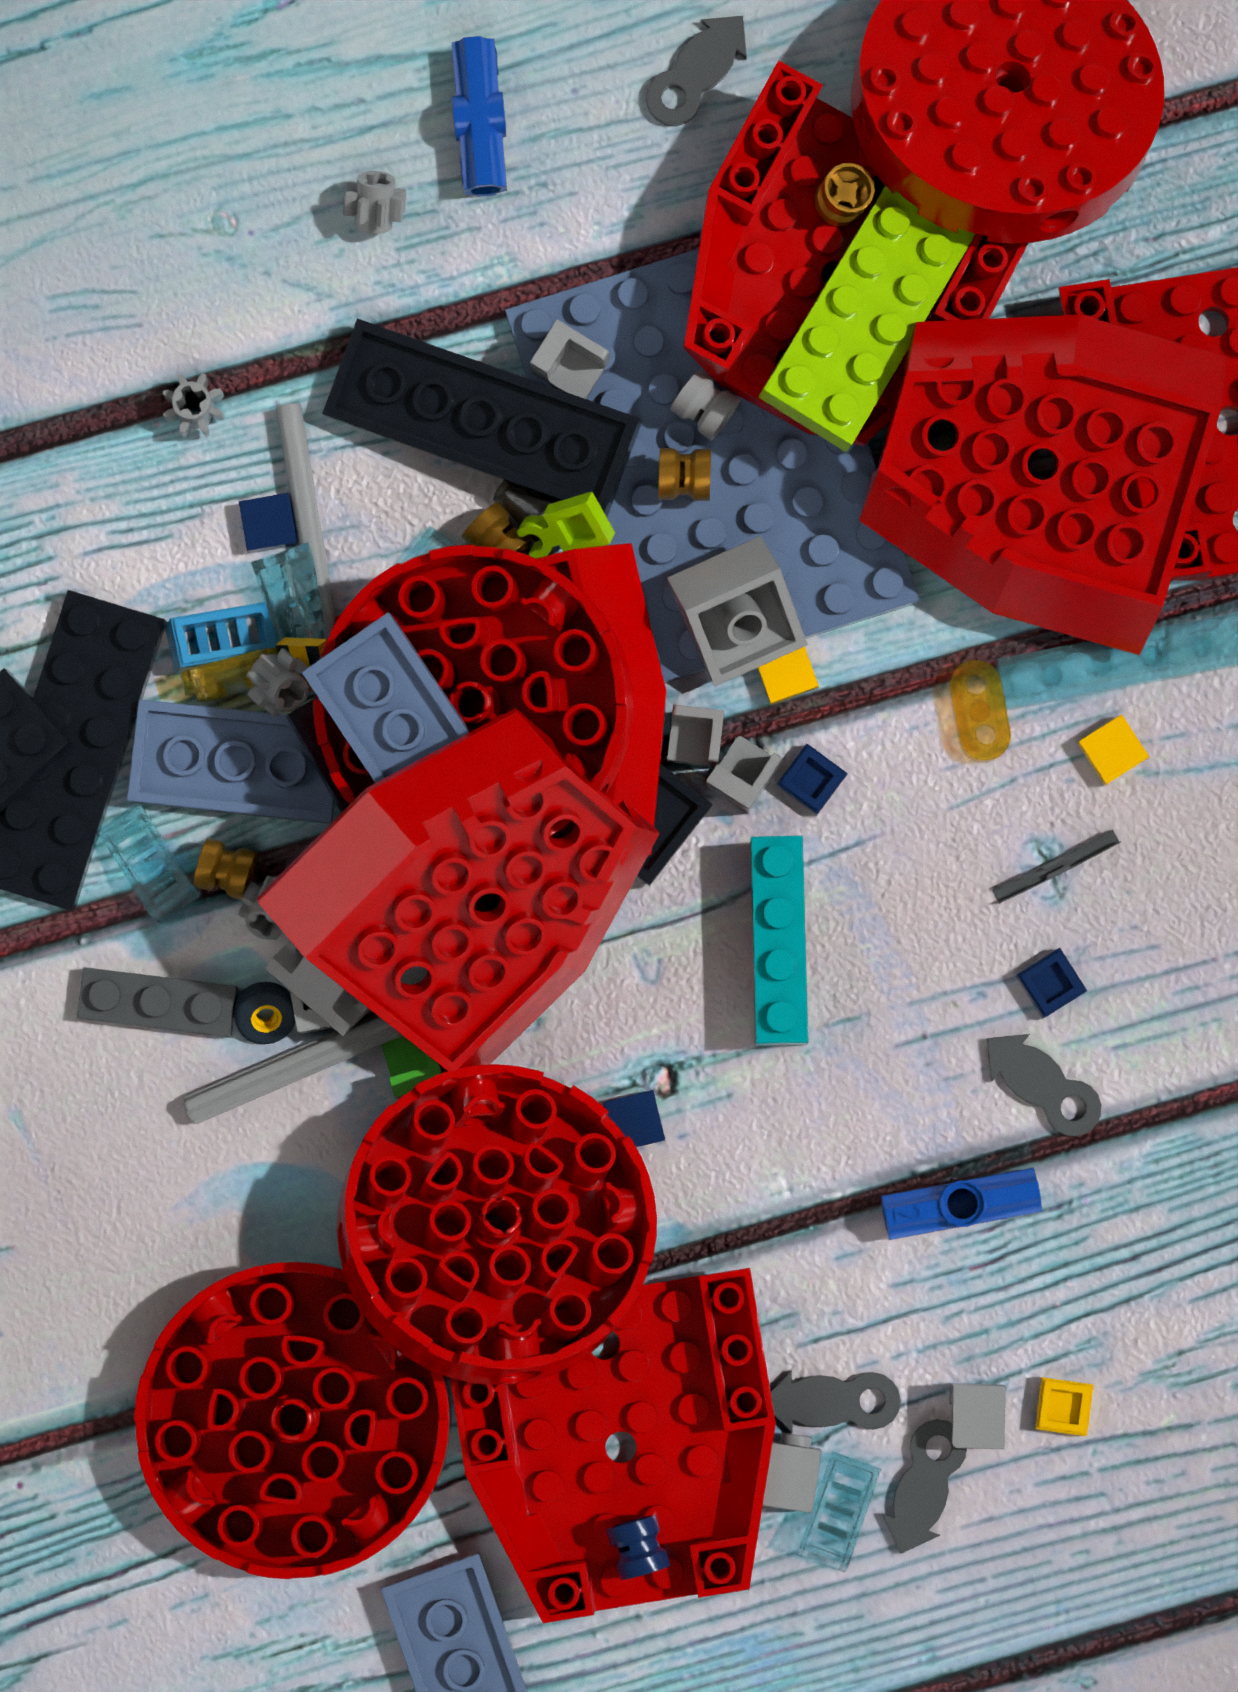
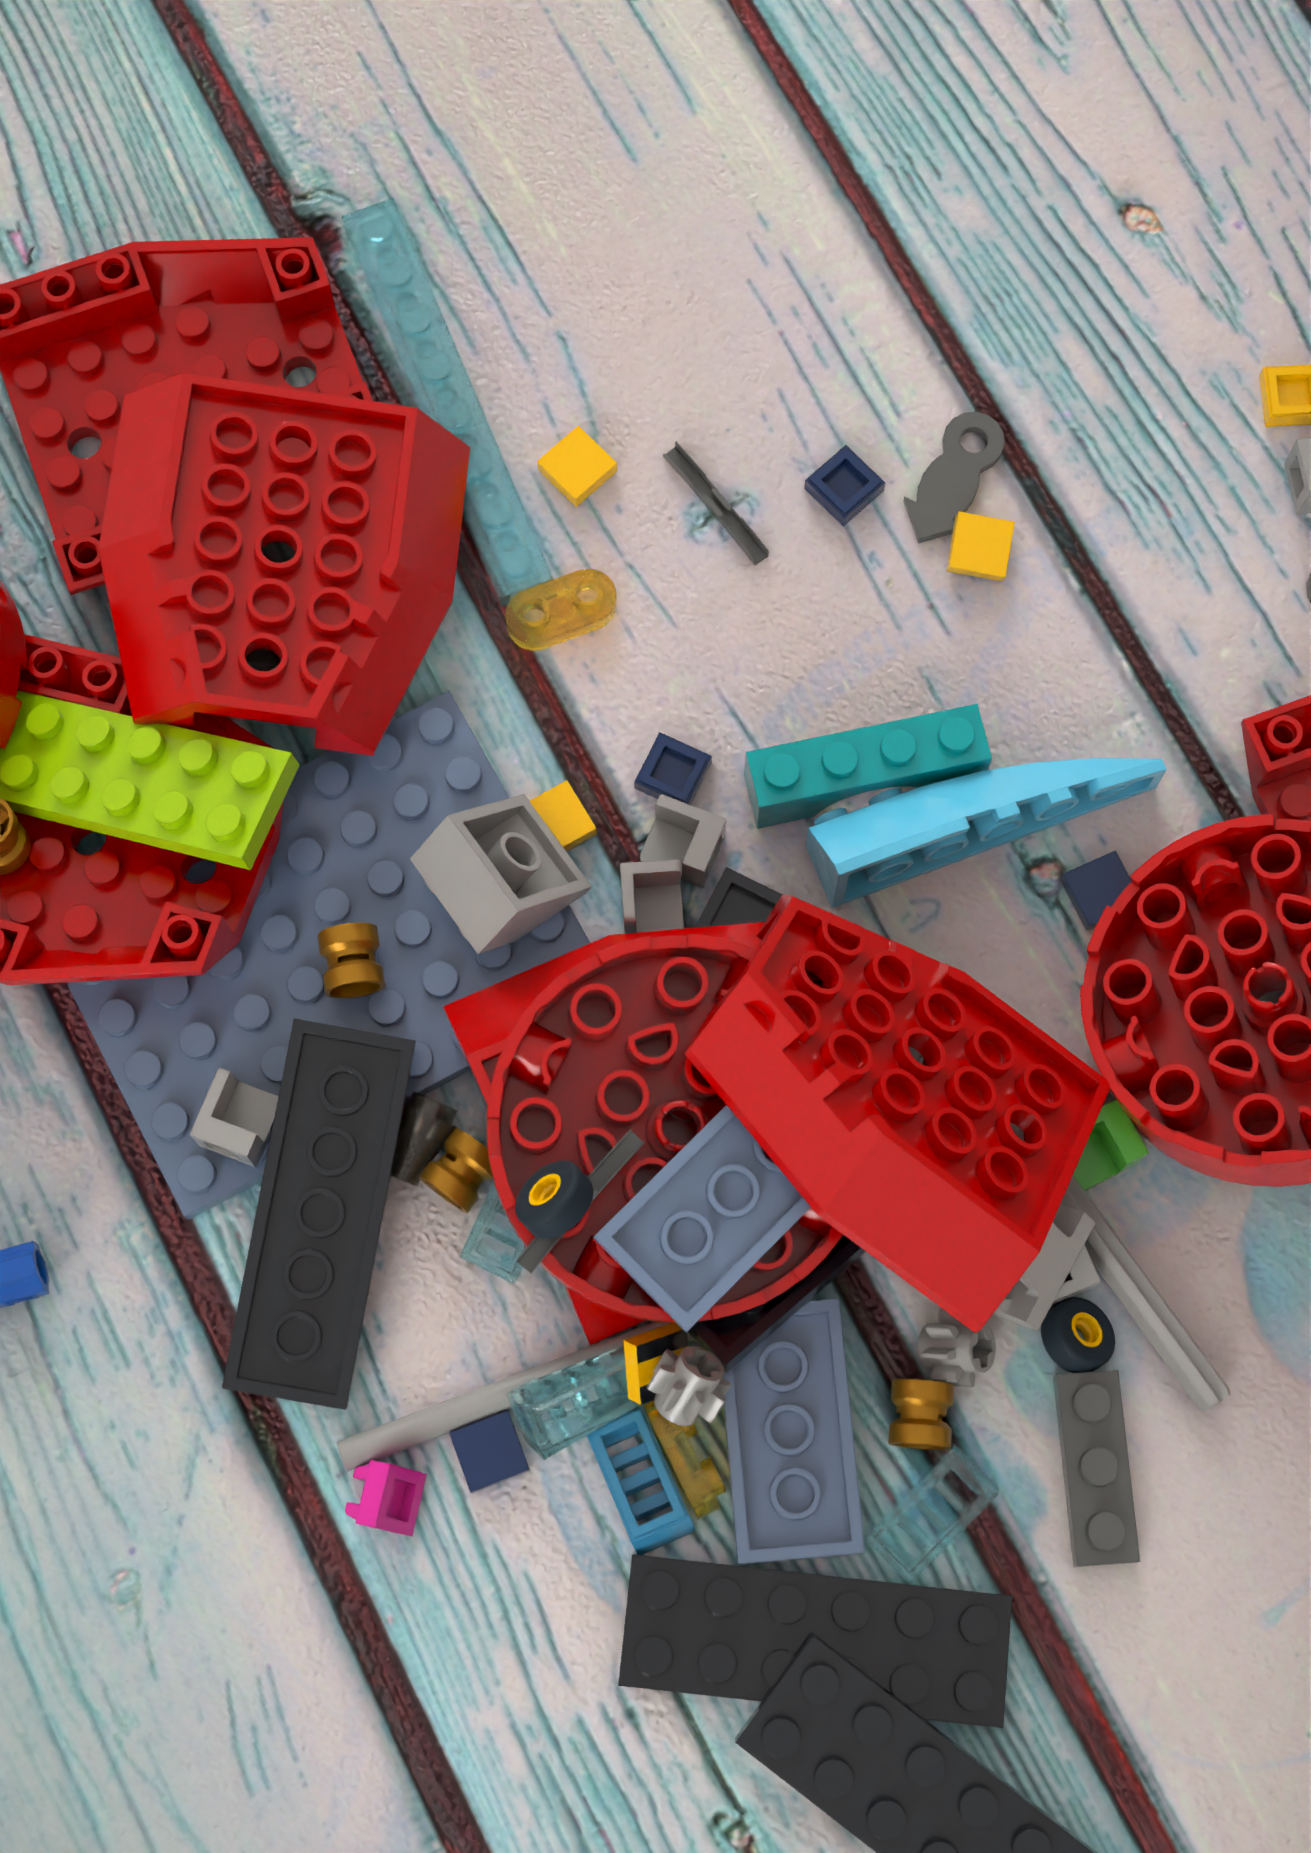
camera: 105 degrees left, 10 degrees down
(180, 405) = (342, 1569): light grey gear -> none
(246, 436) = (388, 1497): none -> dark pink tile
(374, 202) = (73, 1397): light grey gear -> none
(424, 587) = (554, 1199): none -> black wheel
(424, 611) = (600, 1177): none -> dark grey piece
(568, 523) = (434, 1075): lime plate -> none
(705, 404) = (265, 952): light grey wheel -> none
(717, 1006) = (962, 817): none -> medium azure wedge
(967, 1088) = (980, 546): none -> yellow tile
(994, 1195) = (1120, 557): blue piece -> none

